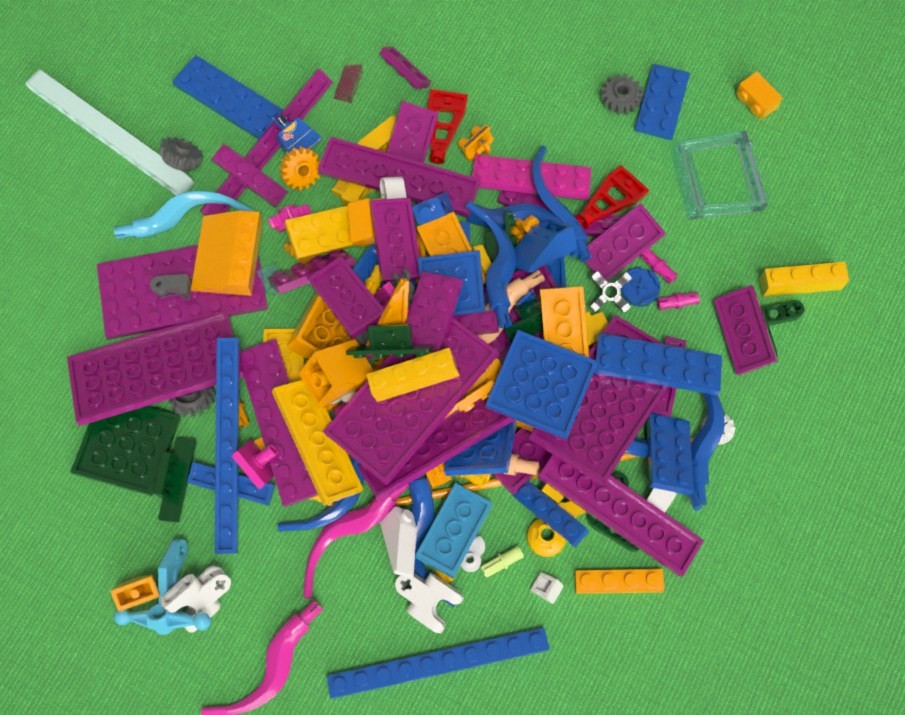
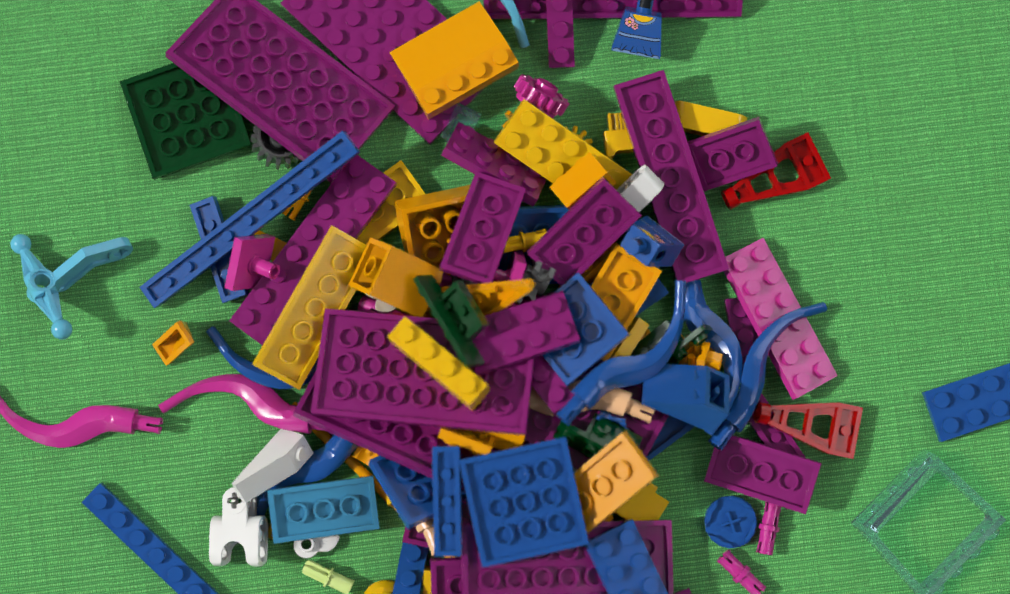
camera: 55 degrees right, 15 degrees up
(134, 592) = (46, 239): light orange slope -> none
(172, 285) = (374, 25): dark grey leg -> none
(173, 477) = (184, 188): dark green bracket -> none
(198, 593) = (85, 304): white piece -> none
(269, 555) = (174, 342): none -> light orange slope
(292, 163) = (606, 62): light orange gear -> none
(348, 83) = (752, 34): clear pink slope -> none
(405, 67) = (816, 84): magenta plate -> none
(478, 143) = (778, 232): light orange hips -> none
(507, 432) = (447, 500): none -> blue plate
(617, 284) = (695, 506): pin -> none
(630, 97) = (968, 346): dark grey gear -> none

